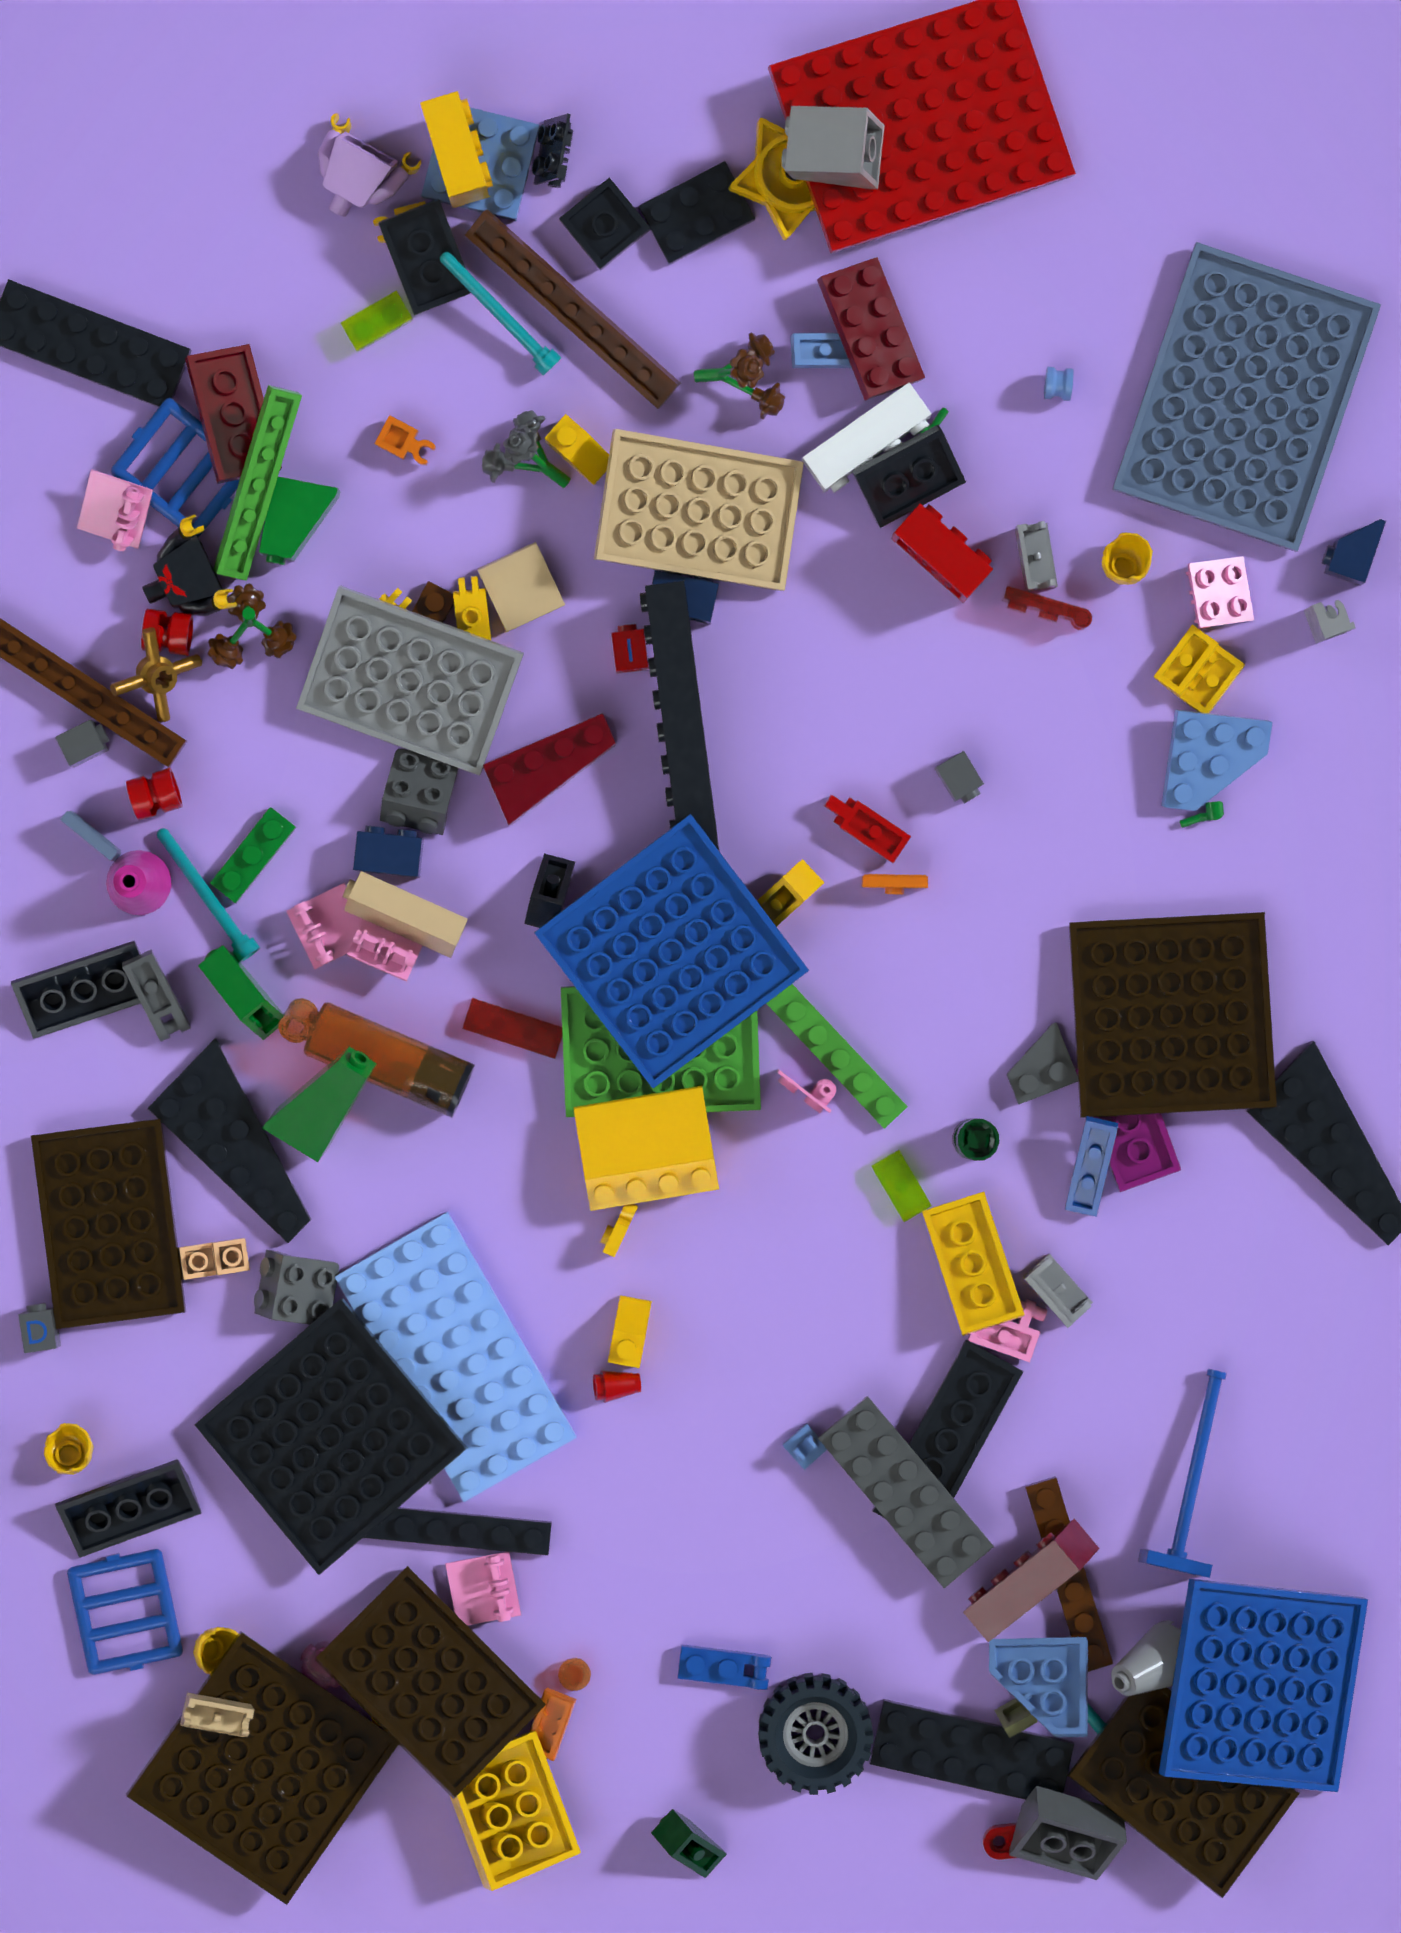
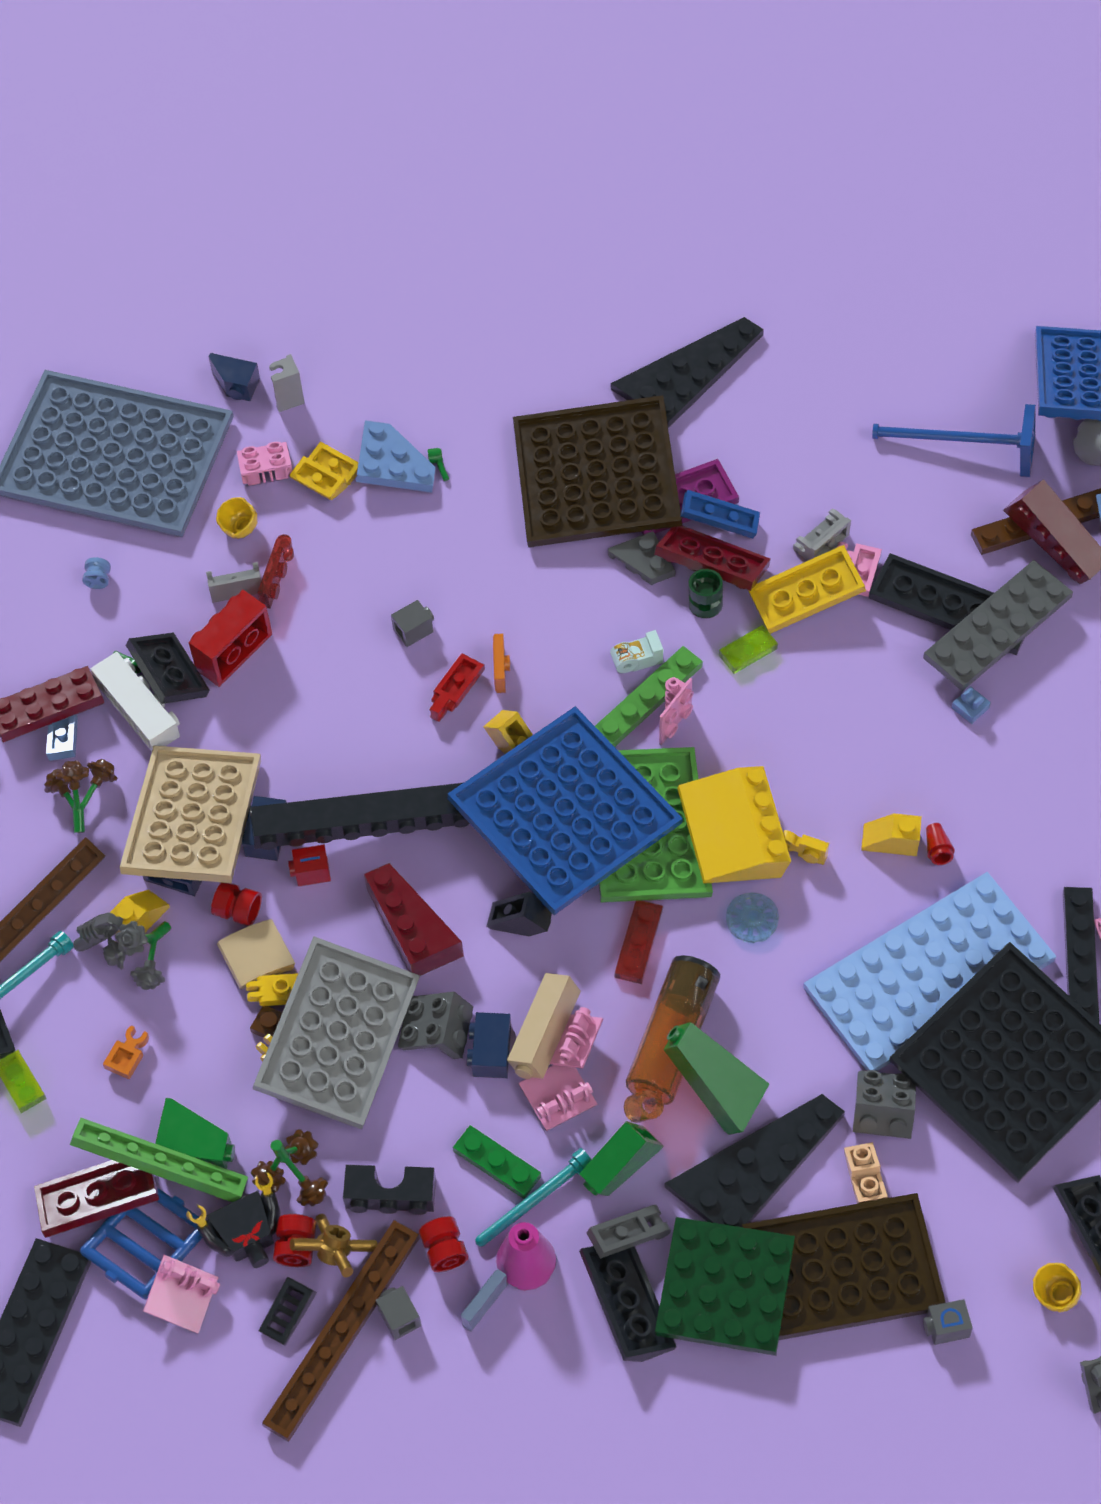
camera: 90 degrees left, 30 degrees down
(89, 1095) = (725, 1286): none -> dark green plate
(119, 630) = (283, 1295): none -> black slope
(221, 707) = (413, 1194): none -> black arch
(537, 1160) = (752, 917): none -> clear light blue wheel
(550, 403) = (96, 931): none -> dark grey hinge
(580, 567) = (236, 903): none -> red wheel
(898, 1049) = (638, 653): none -> light aqua leg
(1029, 1152) = (705, 552): none -> dark red plate

